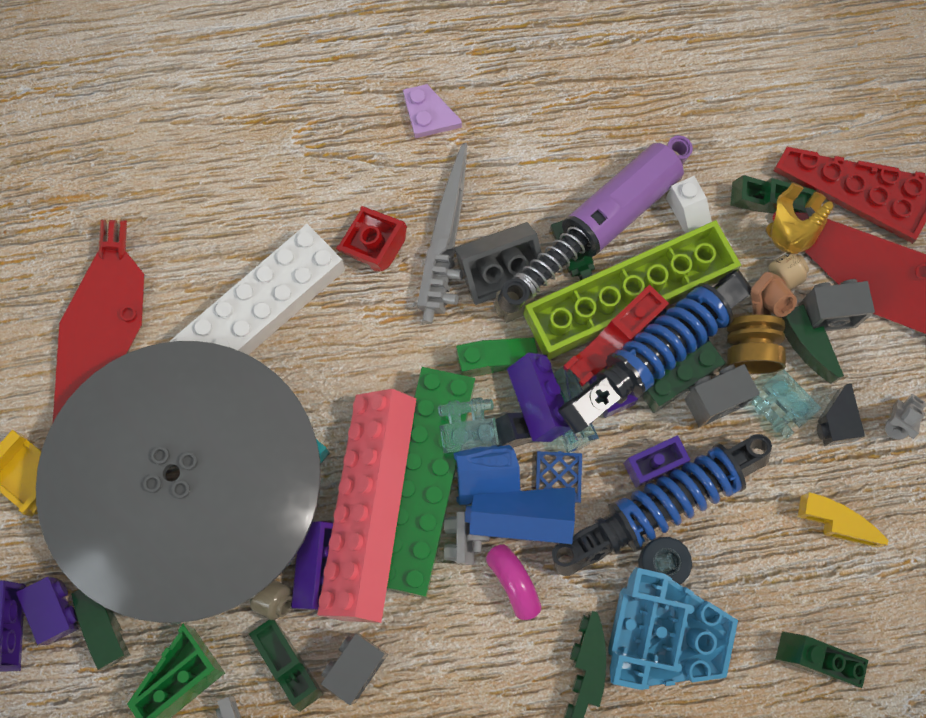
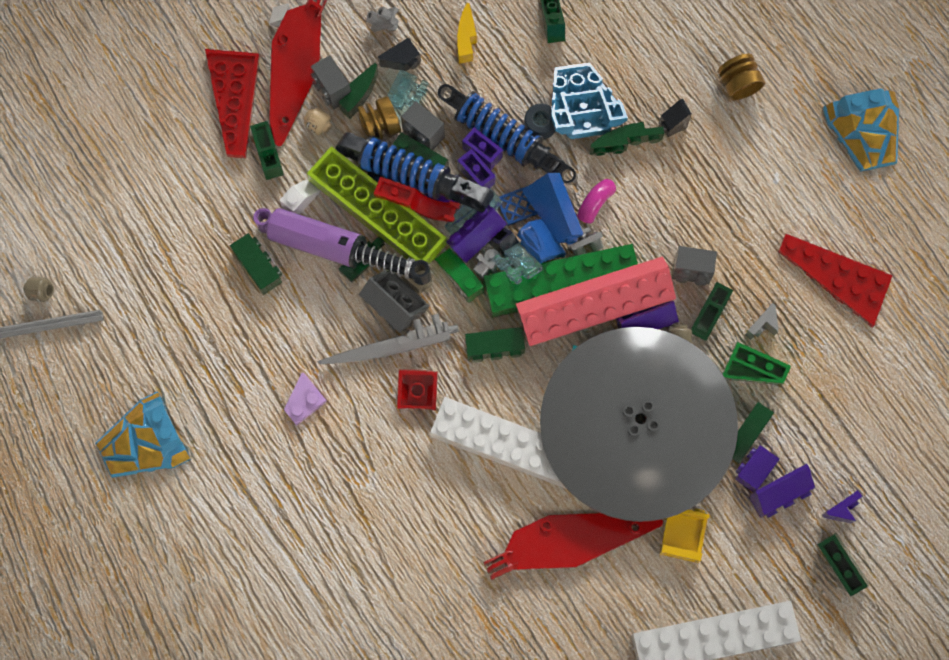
camera: 115 degrees left, 0 degrees up
(383, 354) = (495, 344): none -> dark green brick
(492, 388) = (487, 264): none -> light grey hips
(624, 124) = (256, 263): none -> dark green brick
(627, 438) = (476, 170): none -> dark purple brick
(772, 296) = (342, 120): nougat piece -> none
(790, 232) = (294, 125): pearl gold piece -> none

